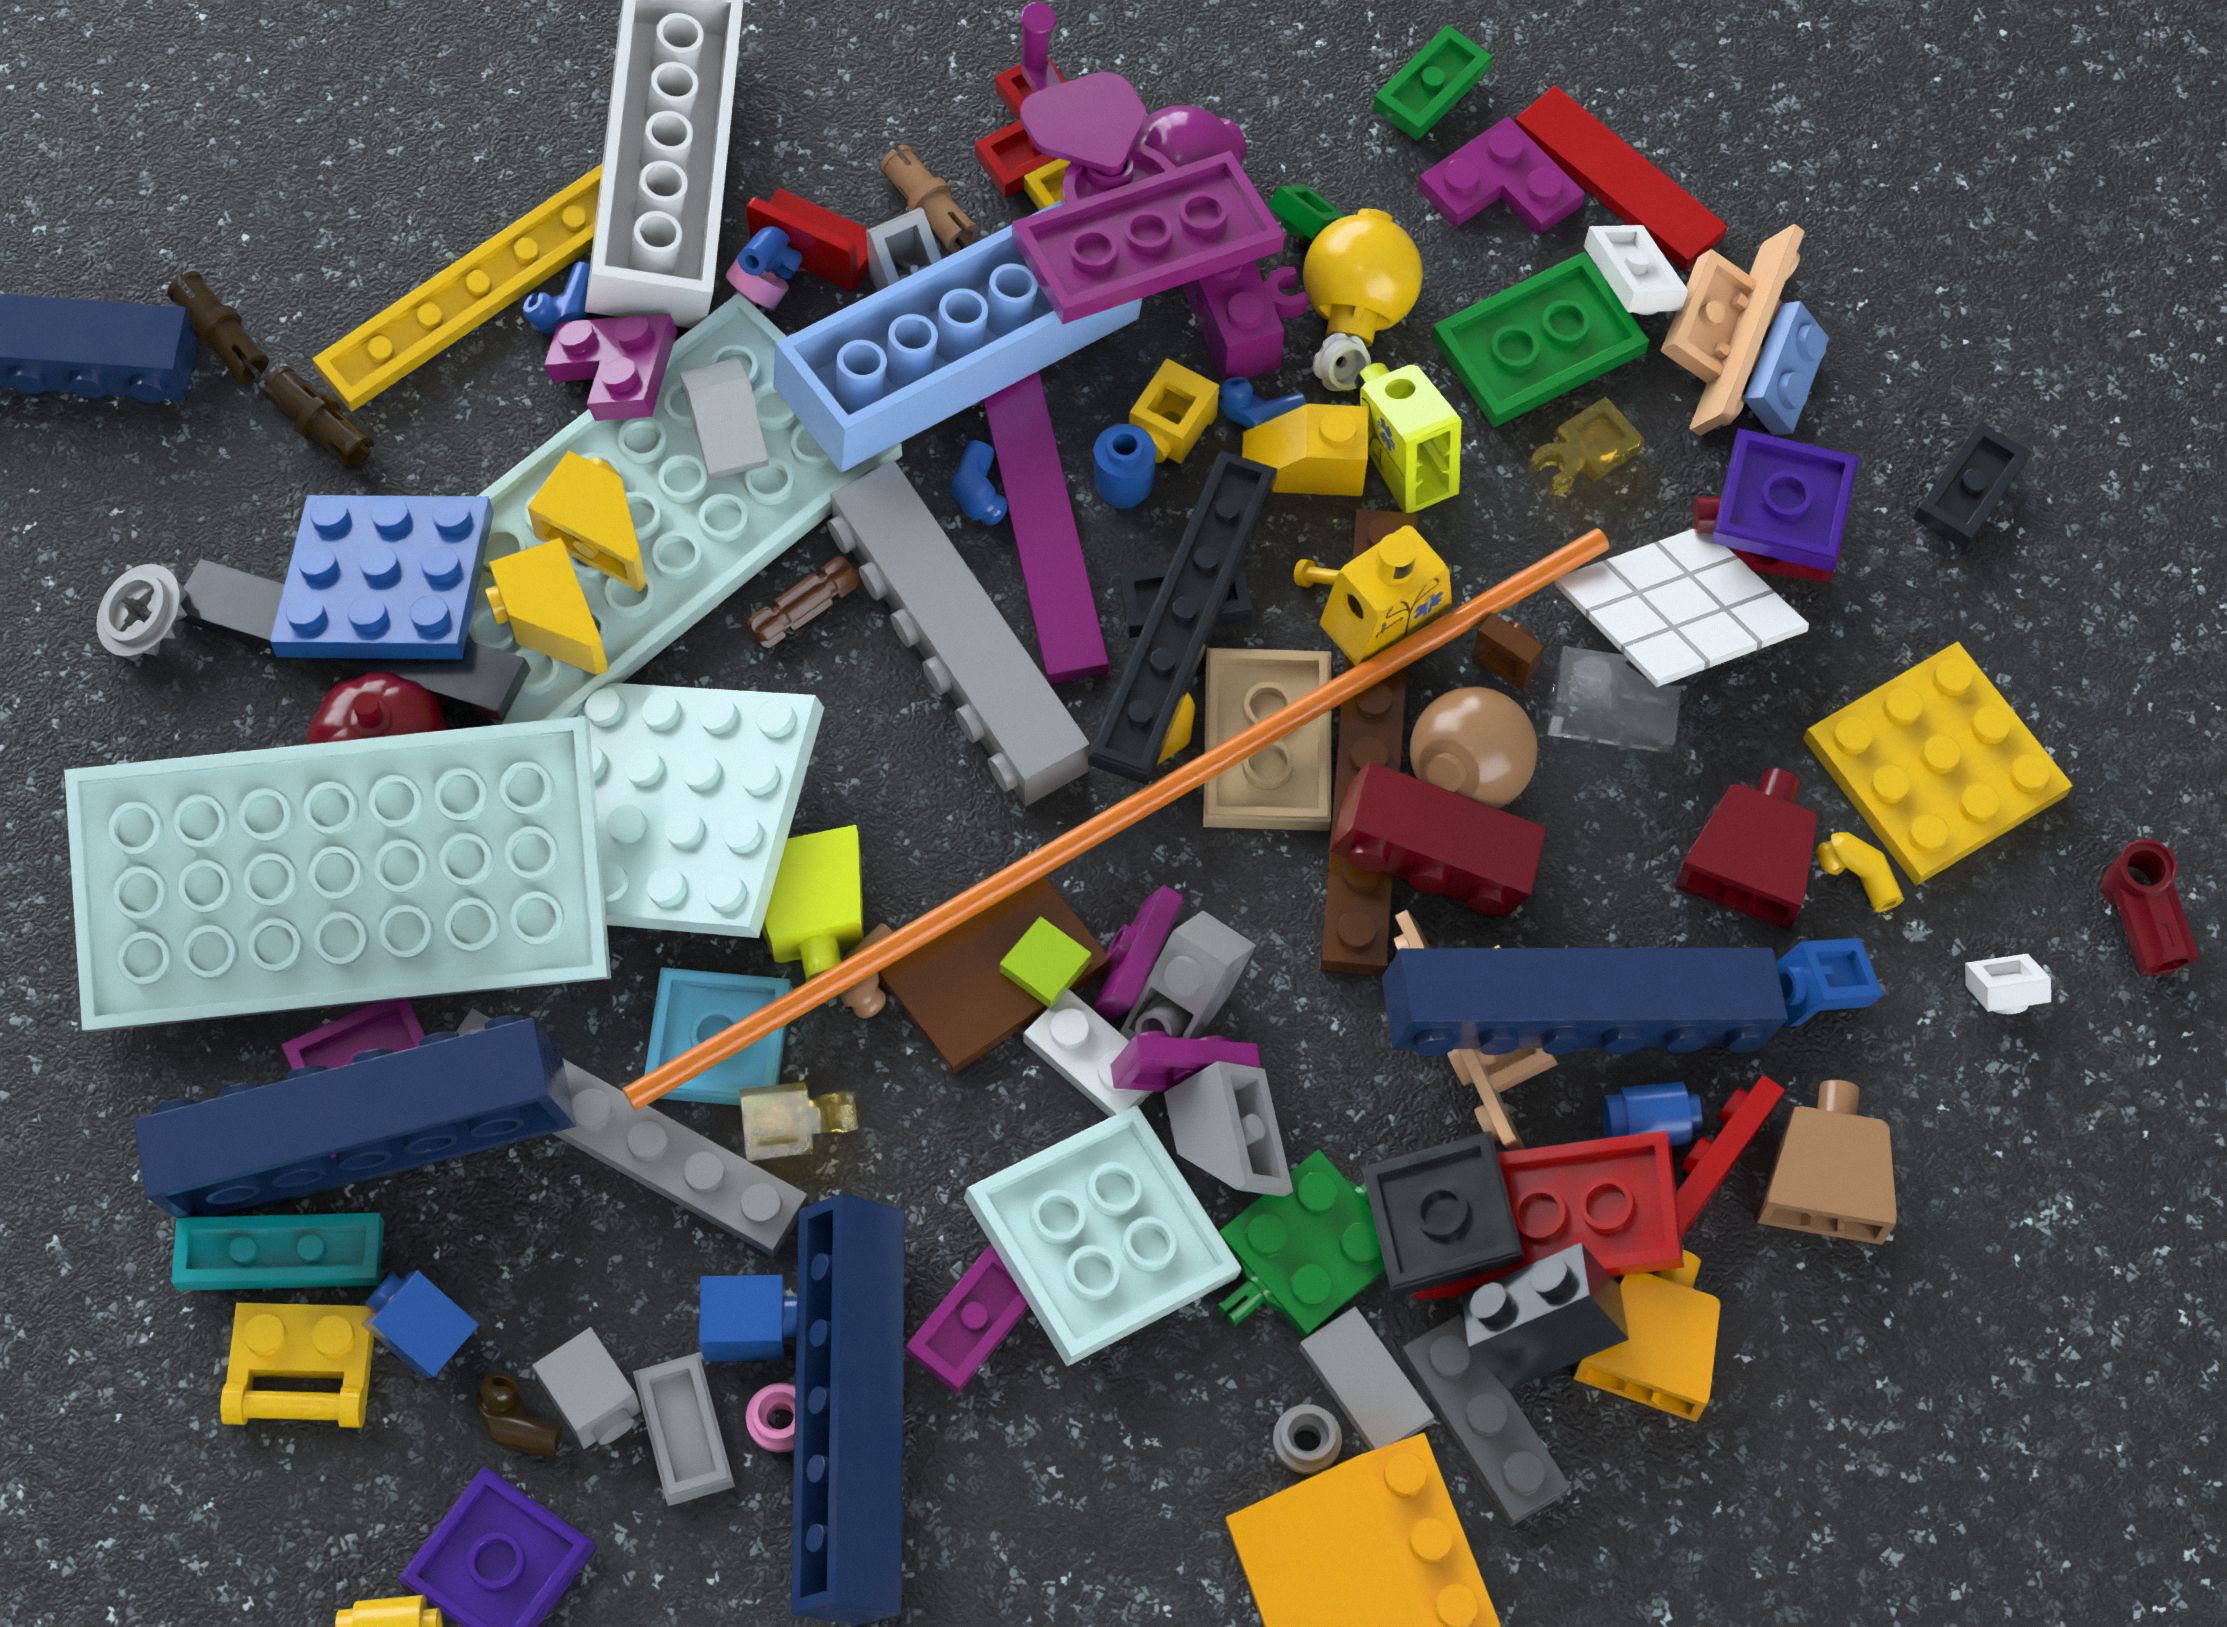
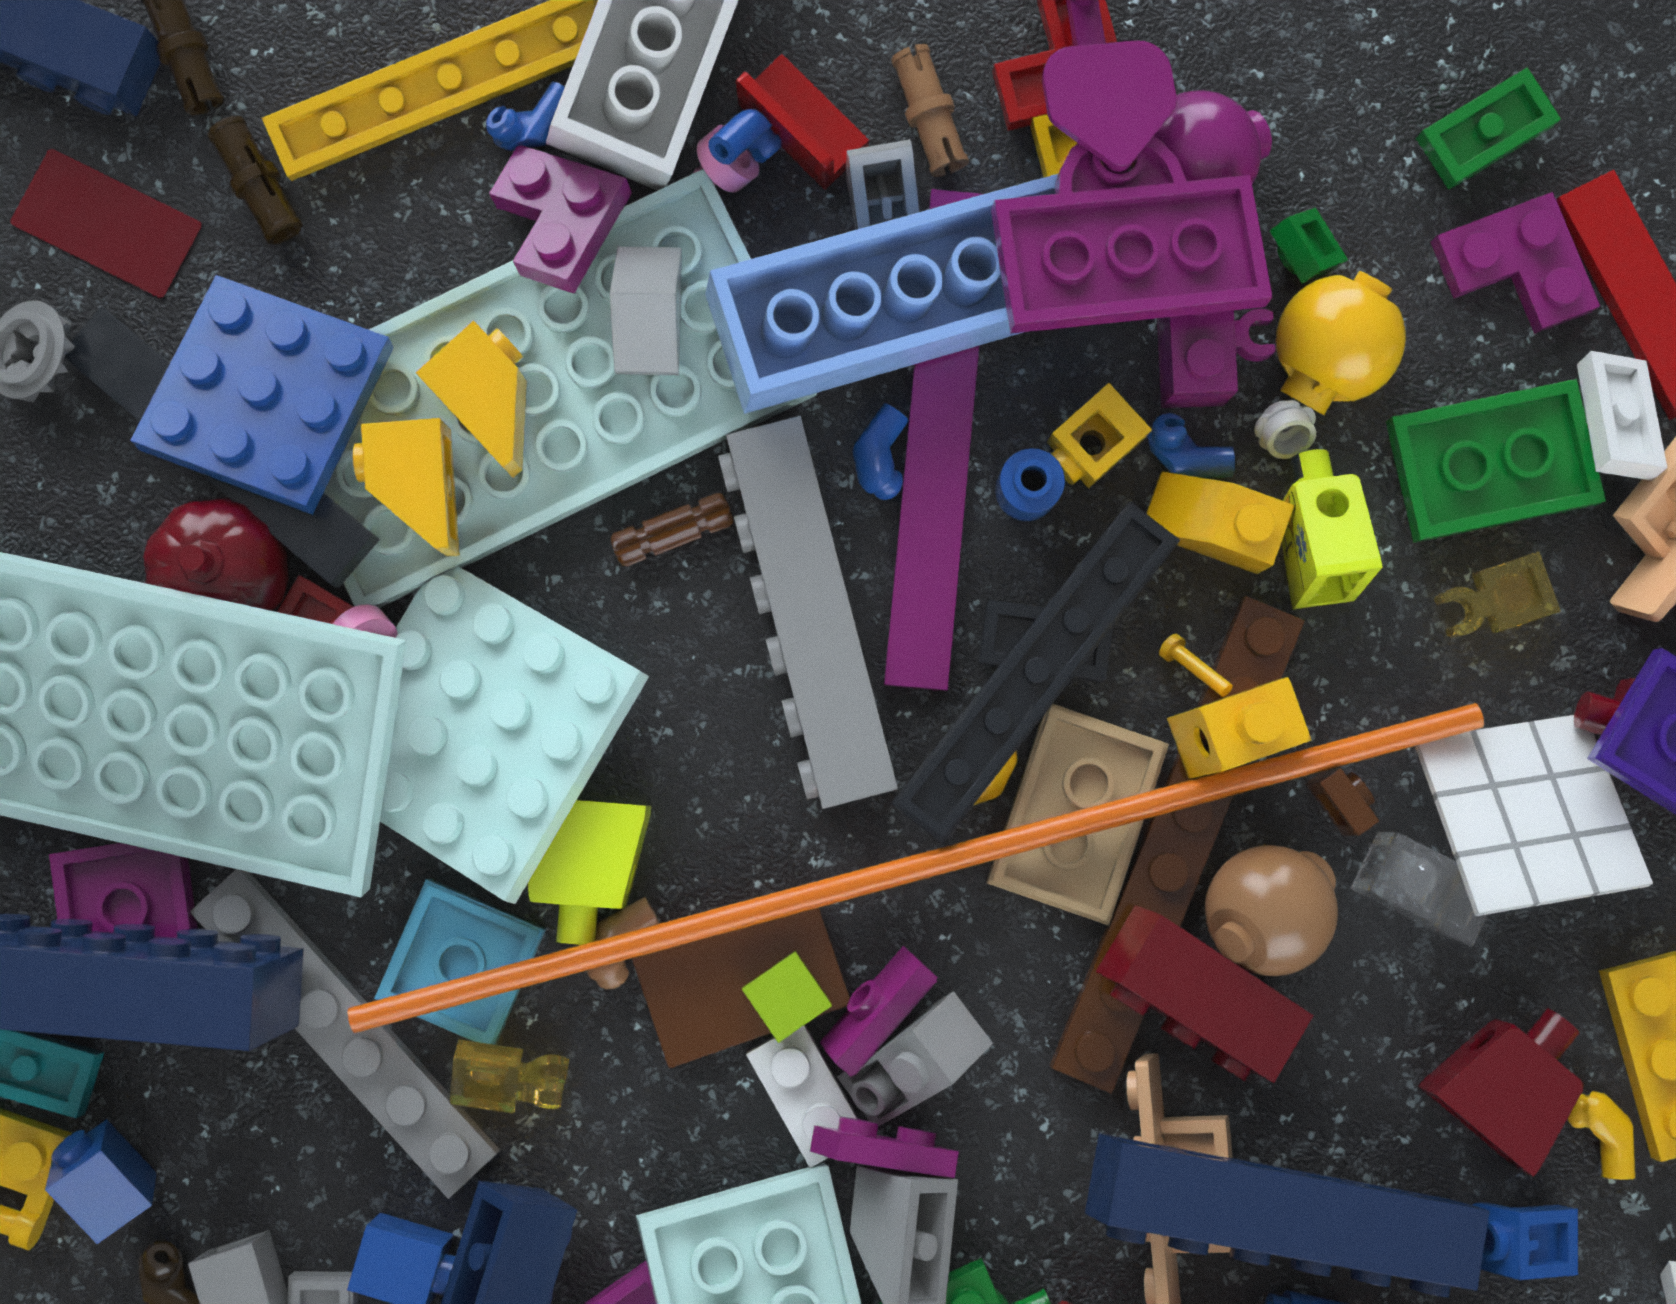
camera: 15 degrees right, 20 degrees up
(181, 496) = (106, 223): none -> dark red sticker

